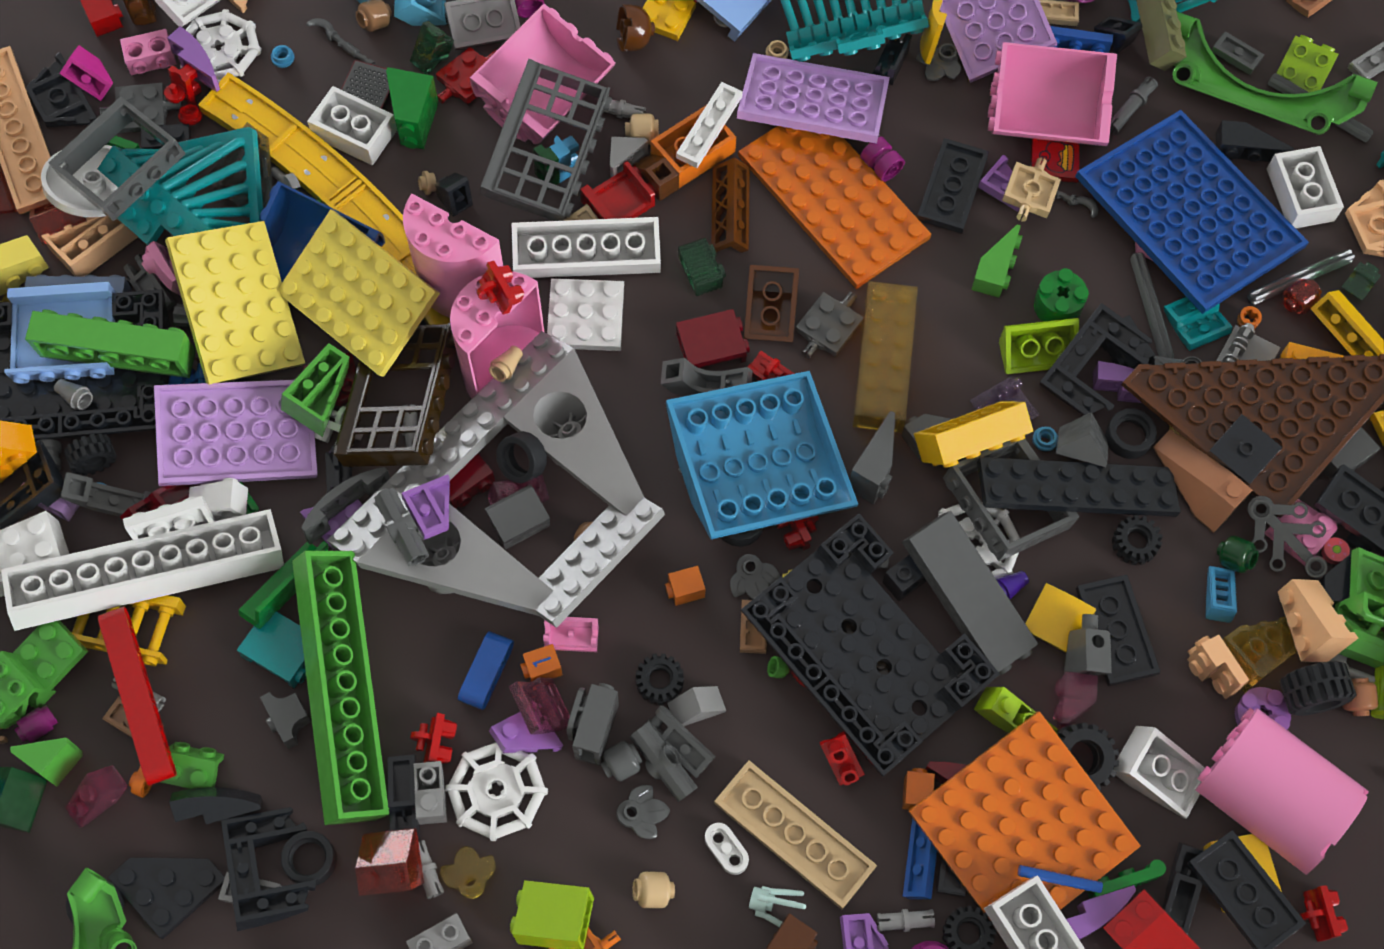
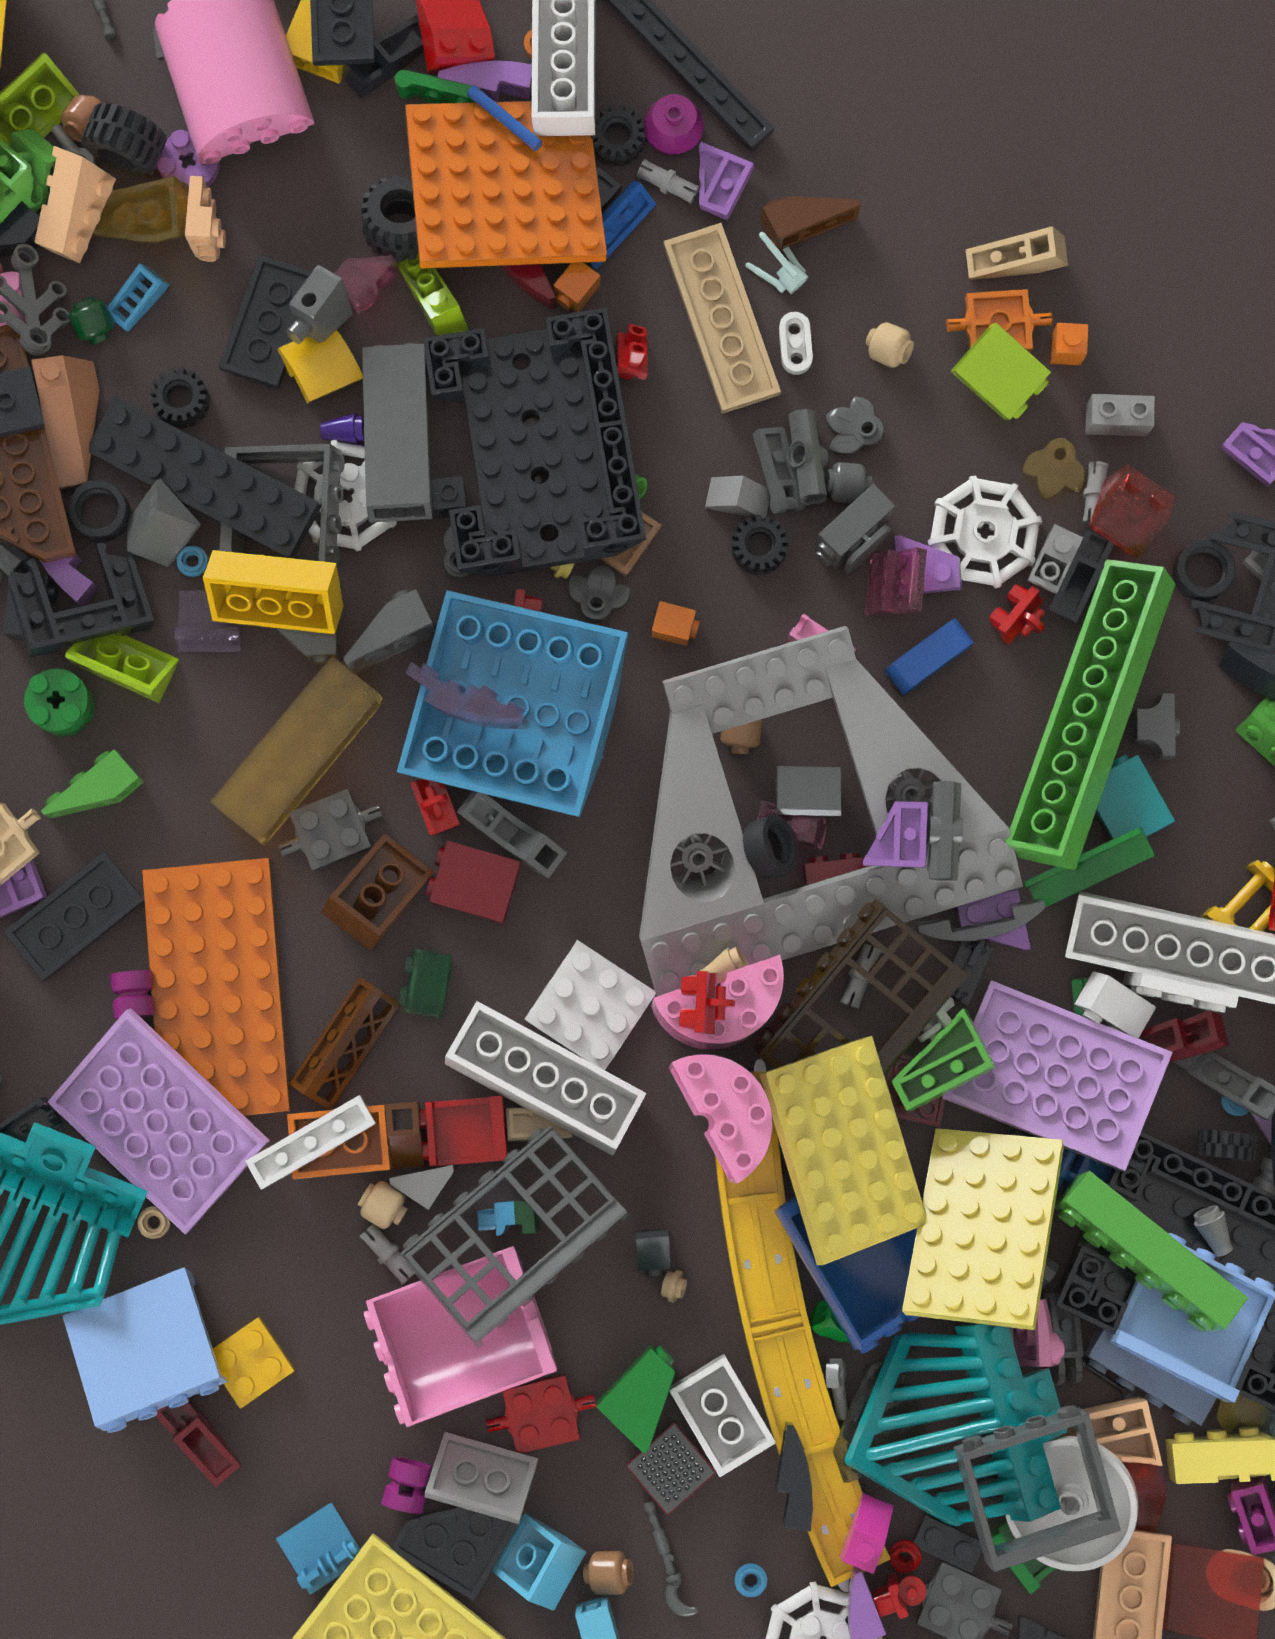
camera: 150 degrees left, 15 degrees up
(219, 103) = (867, 1533): none -> dark pink slope
(282, 108) = (795, 1480): none -> black slope
(431, 47) = (567, 1475): clear green brick -> none
(541, 663) = (871, 628): orange brick -> none
(634, 28) = (306, 1352): reddish brown cylinder -> none
(782, 430) = (473, 707): none -> clear purple slope
(1160, 770) = (329, 166): white slope -> none

